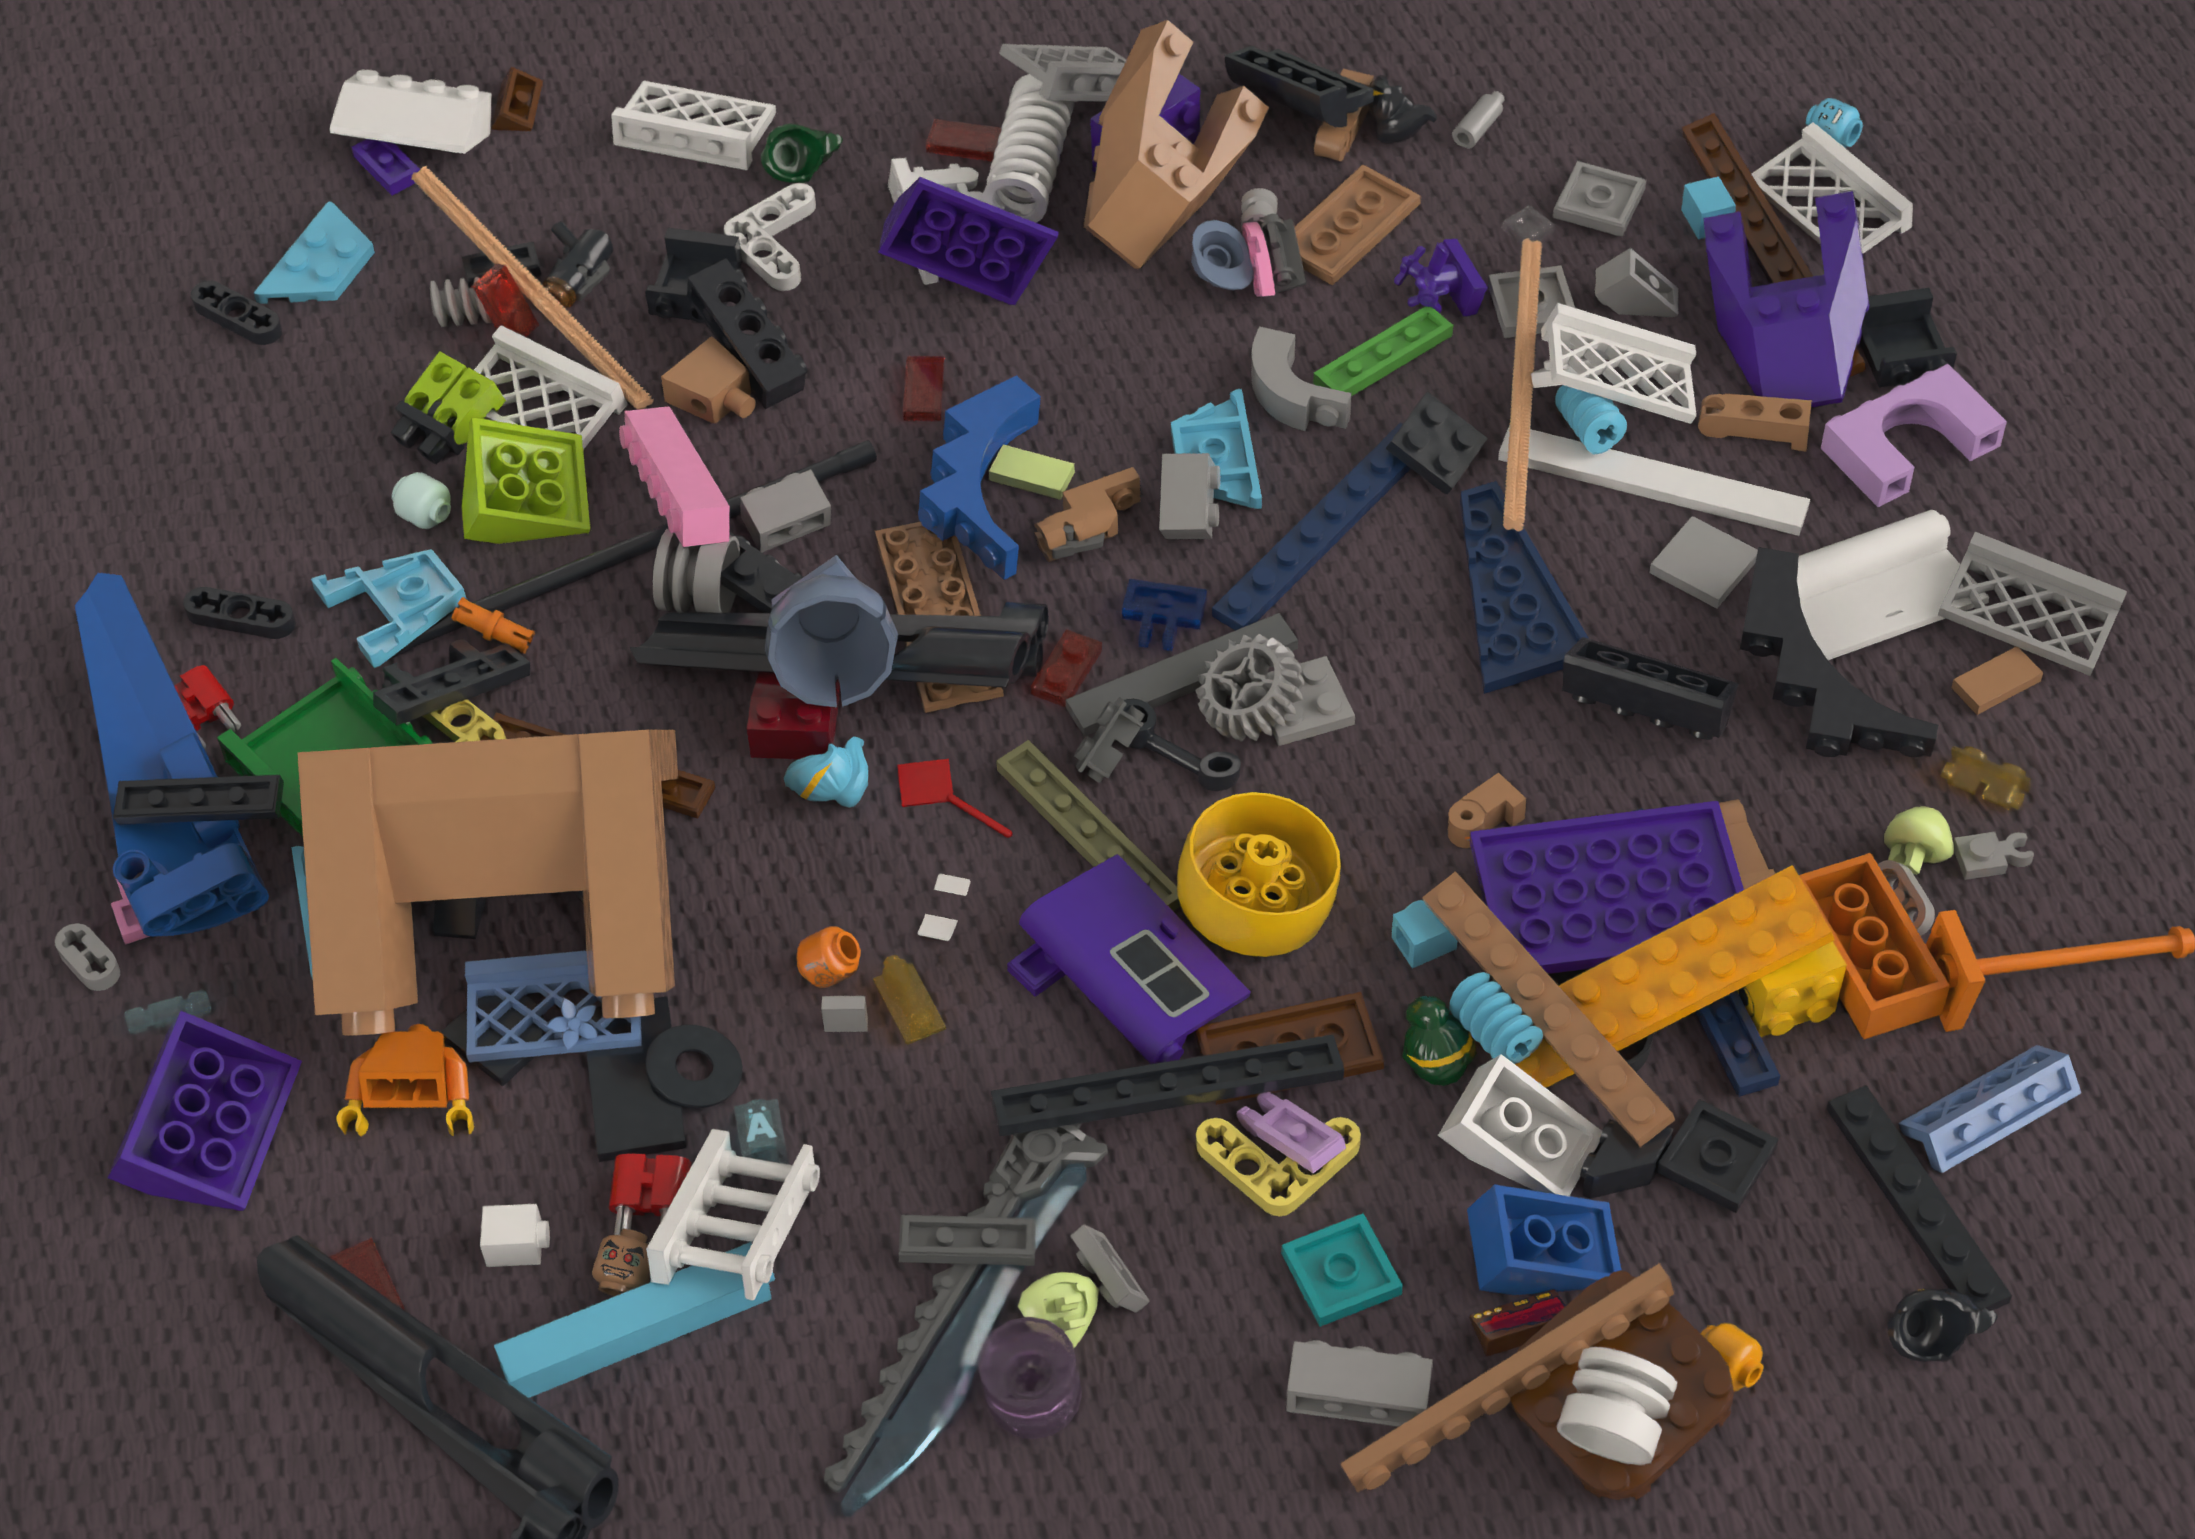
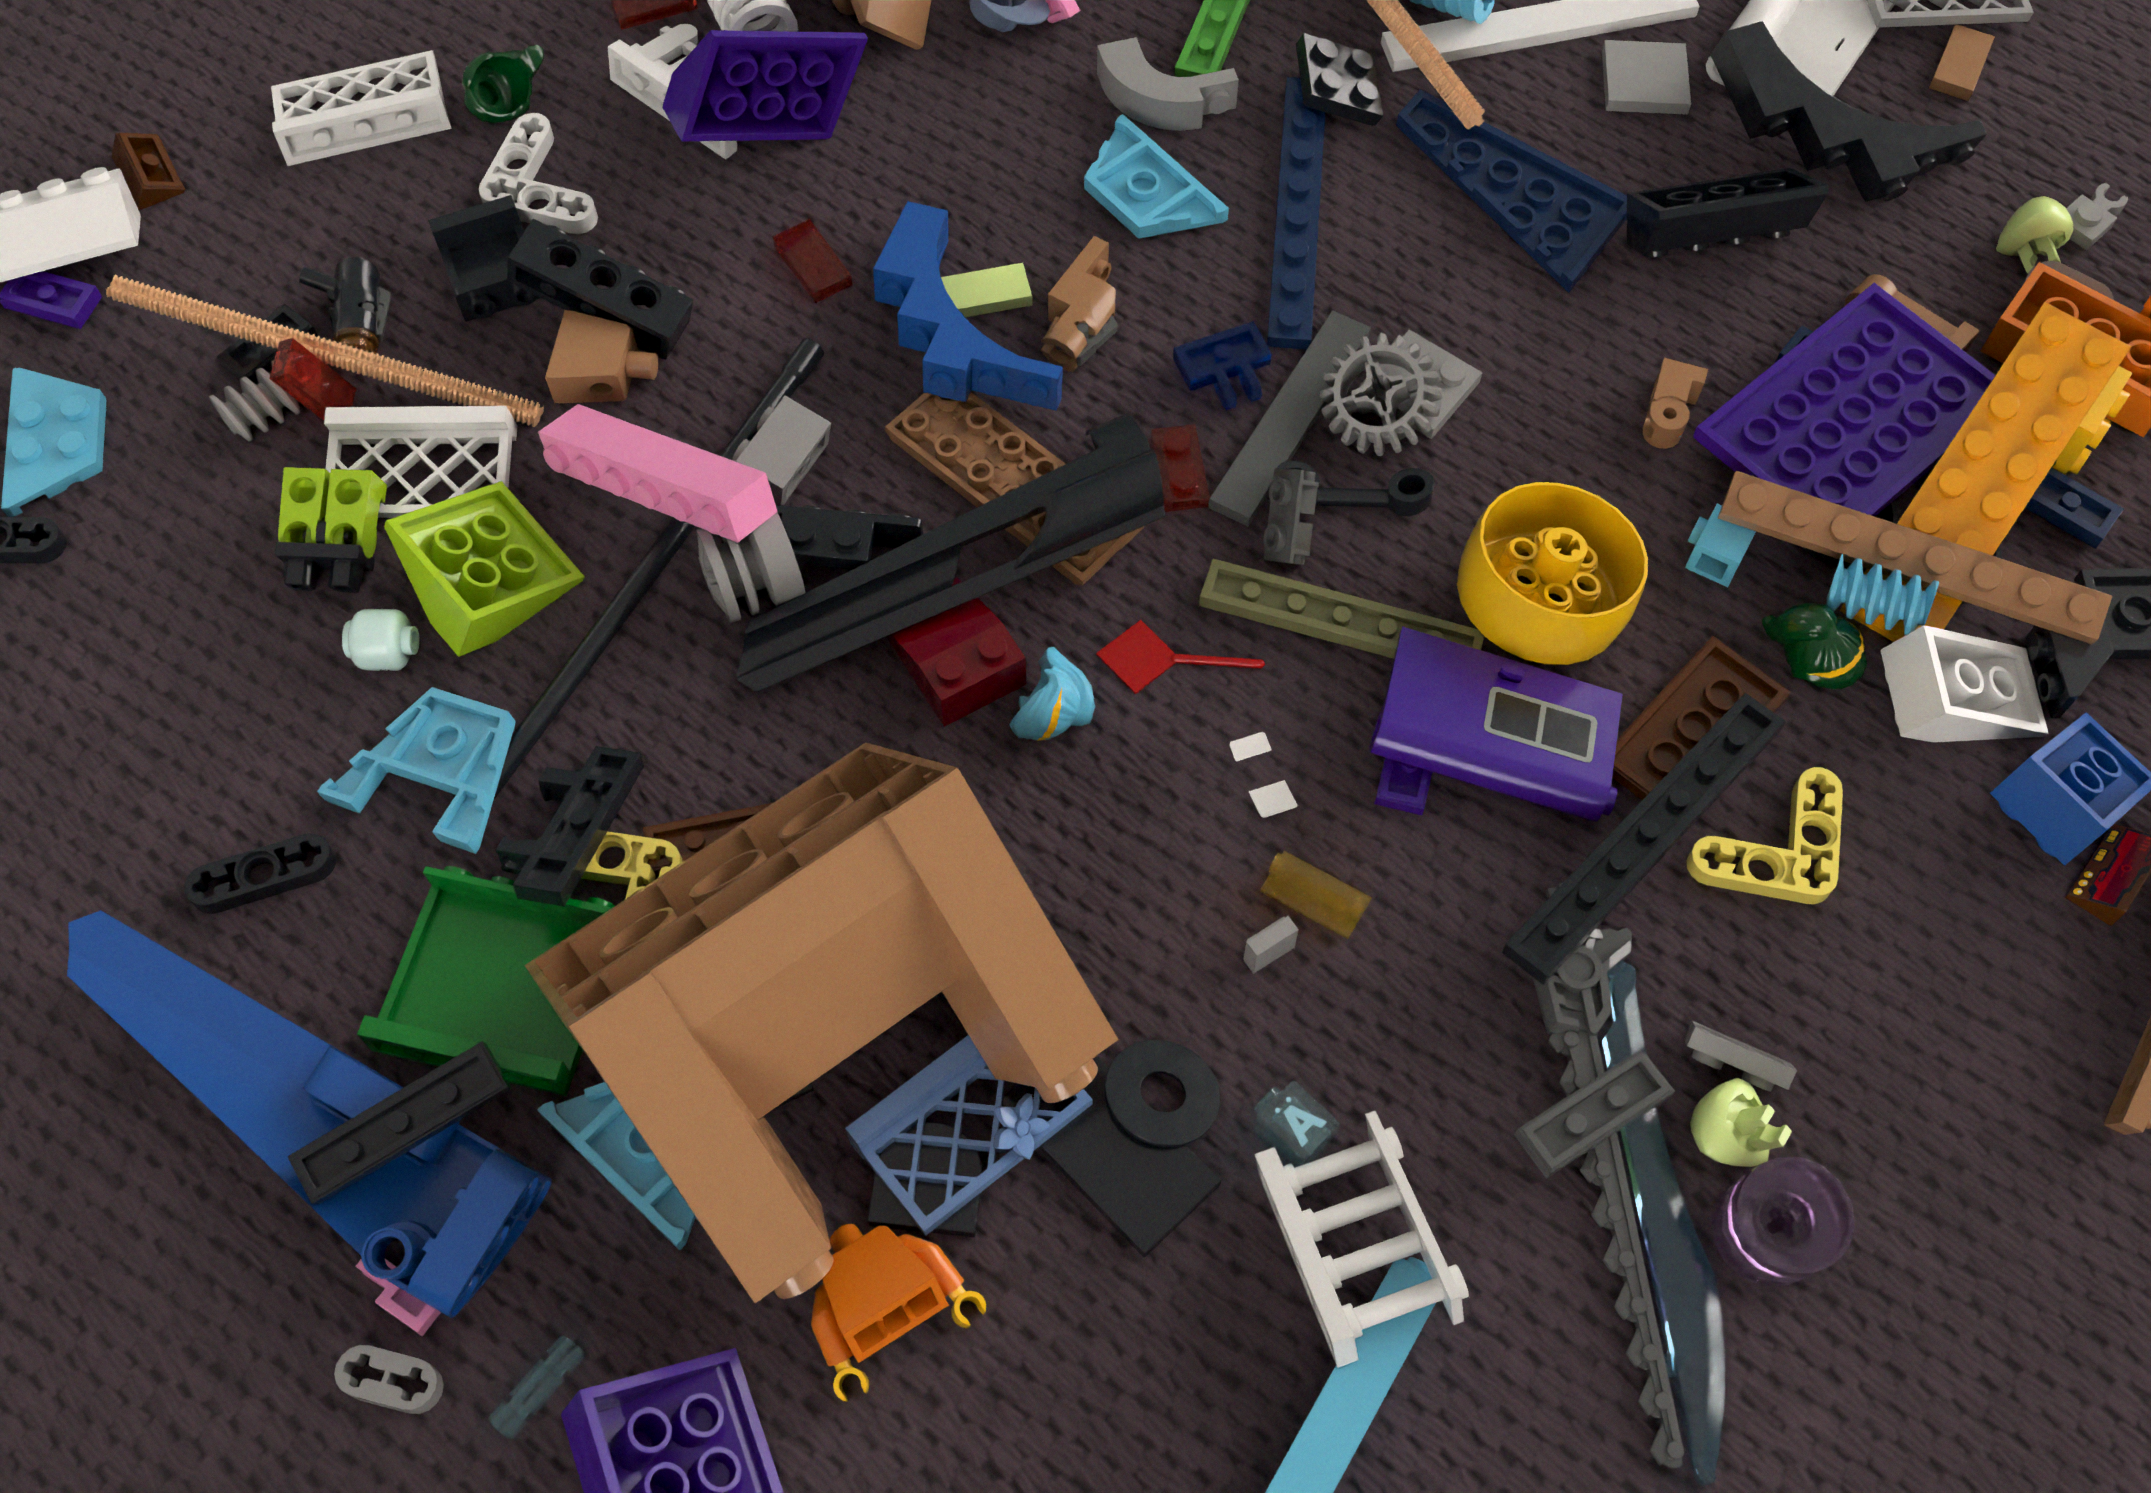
camera: 35 degrees left, 10 degrees up
(206, 699) = (301, 993): red piece -> none
(493, 625) = (568, 734): orange pin -> none
(513, 1235) = (1135, 1404): white brick -> none
(622, 1263) = (1277, 1361): medium nougat head -> none
(645, 1186) = (1230, 1256): red piece -> none
(828, 956) = (1209, 894): orange head -> none
(830, 631) = (975, 547): sand blue plate -> none
(1188, 496) = (1169, 238): light grey brick -> none
(1292, 1131) = (1787, 811): lavender hinge -> none
(1341, 1269) = (1933, 921): teal plate -> none
(1357, 1383) = (2050, 1026): light grey brick -> none
(2003, 781) = (2051, 145): clear yellow hinge -> none

